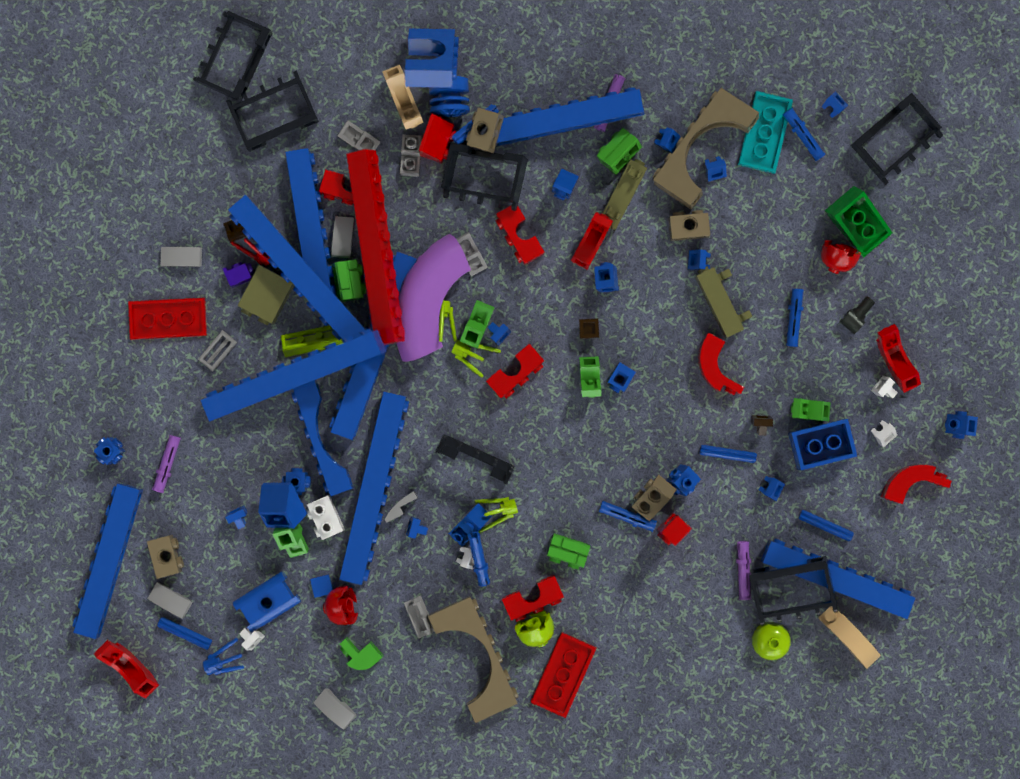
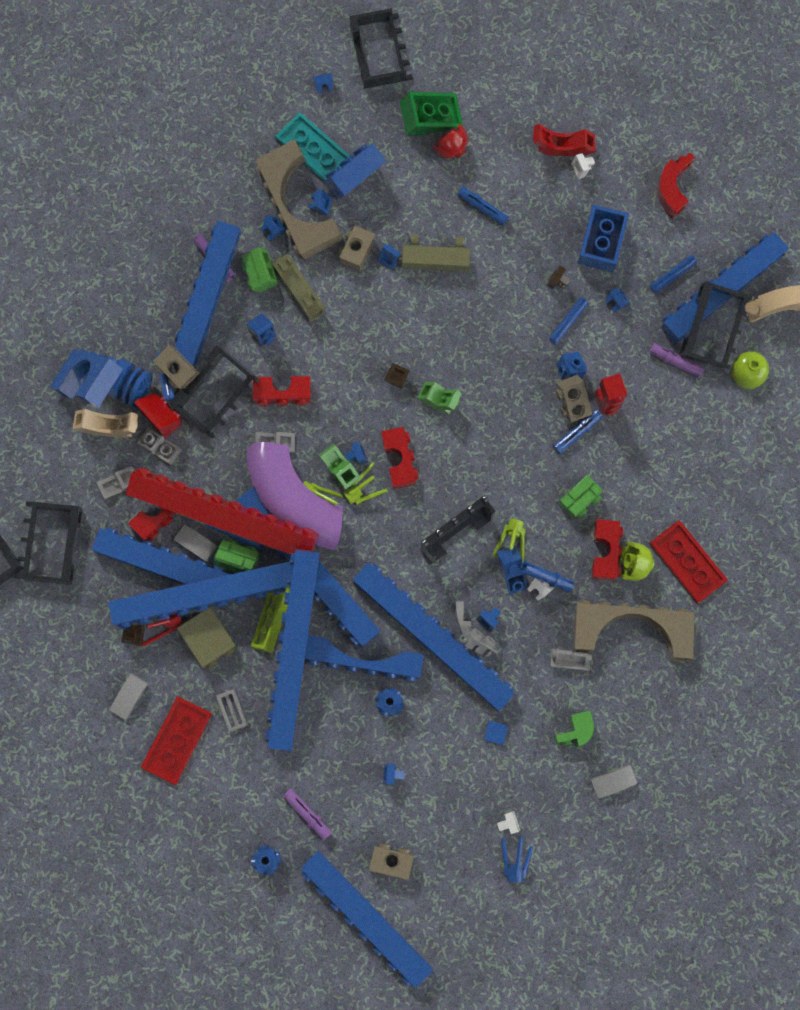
camera: 65 degrees left, 10 degrees down
(132, 670) = (476, 953): red arch -> none
(170, 600) = (434, 880): light grey slope -> none
(184, 633) = (471, 884): blue axle -> none
(239, 274) = (174, 652): dark purple brick -> none
(254, 609) = (493, 802): blue piece -> none
(280, 505) = (403, 725): blue slope -> none
(291, 540) = (438, 735): bright green brick -> none
(325, 517) = (436, 694): white brick -> none
(340, 609) = (523, 724): red cylinder -> none
(390, 530) = (478, 642): none -> light grey hinge
(592, 240) = (321, 330): red arch -> none
(606, 285) = (368, 340): blue brick -> none
(626, 373) = (451, 366): blue brick -> none
(709, 367) = (487, 295): red arch -> none
(759, 183) = (353, 170): none -> blue brick
(792, 117) = (333, 117): blue pin -> none
(810, 409) = (568, 233): bright green brick -> none
(855, 318) = (511, 159): pearl dark grey pin -> none
(886, 435) = (622, 184): white tile -> none
(961, 425) = (646, 122): blue brick -> none

